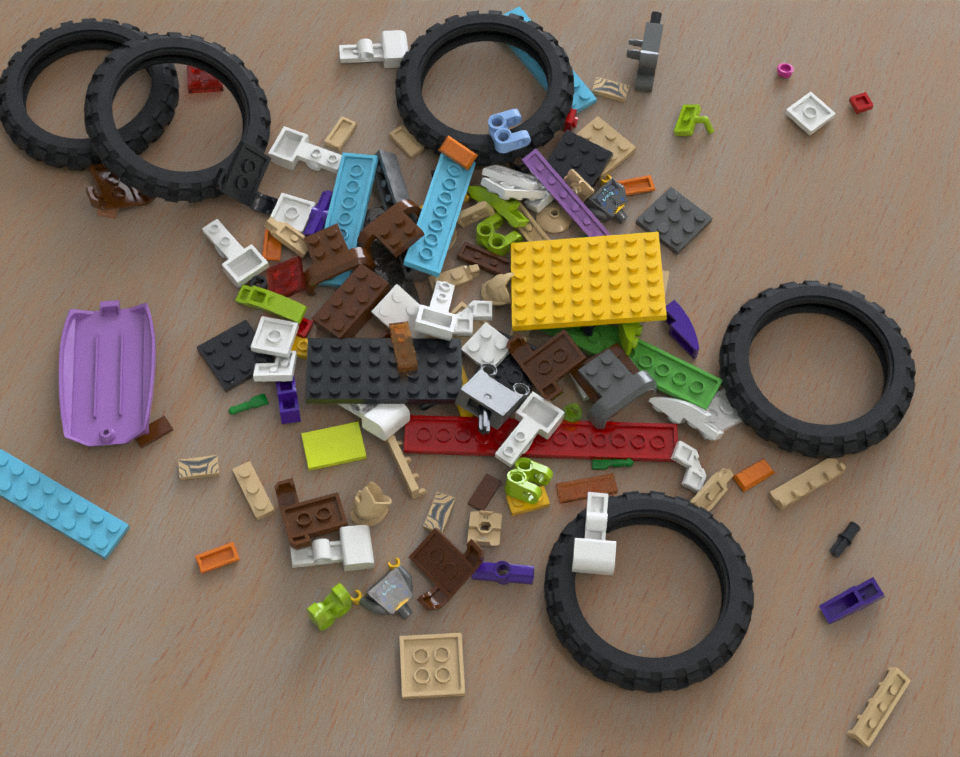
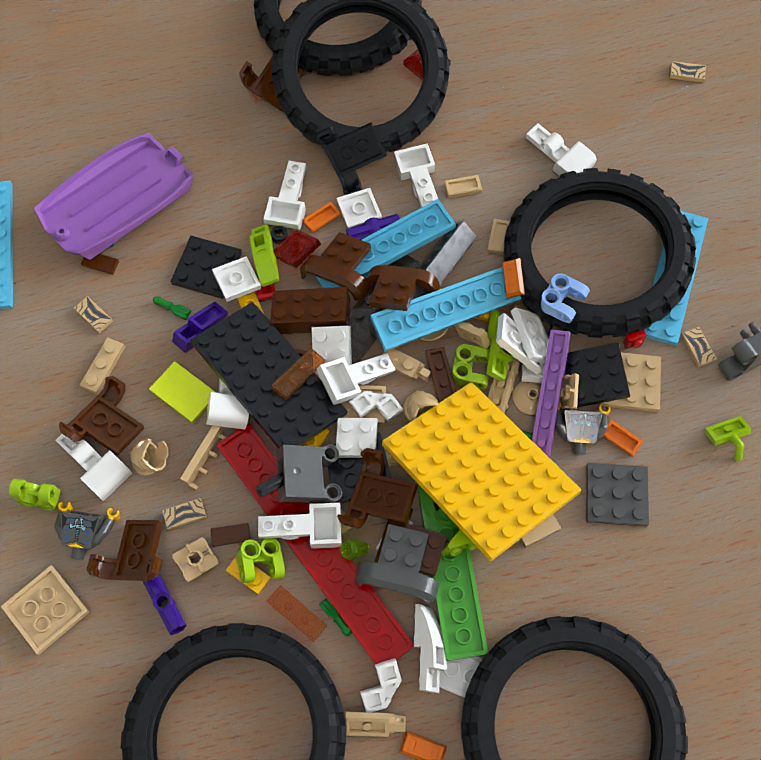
camera: 55 degrees right, 5 degrees up
(217, 557) = (27, 384): orange tile -> none
(281, 370) = (212, 305): white plate -> none
(288, 236) = (334, 218): tan hinge -> none
(593, 552) = (220, 665): white plate -> none
(682, 329) = (513, 578): dark purple slope -> none

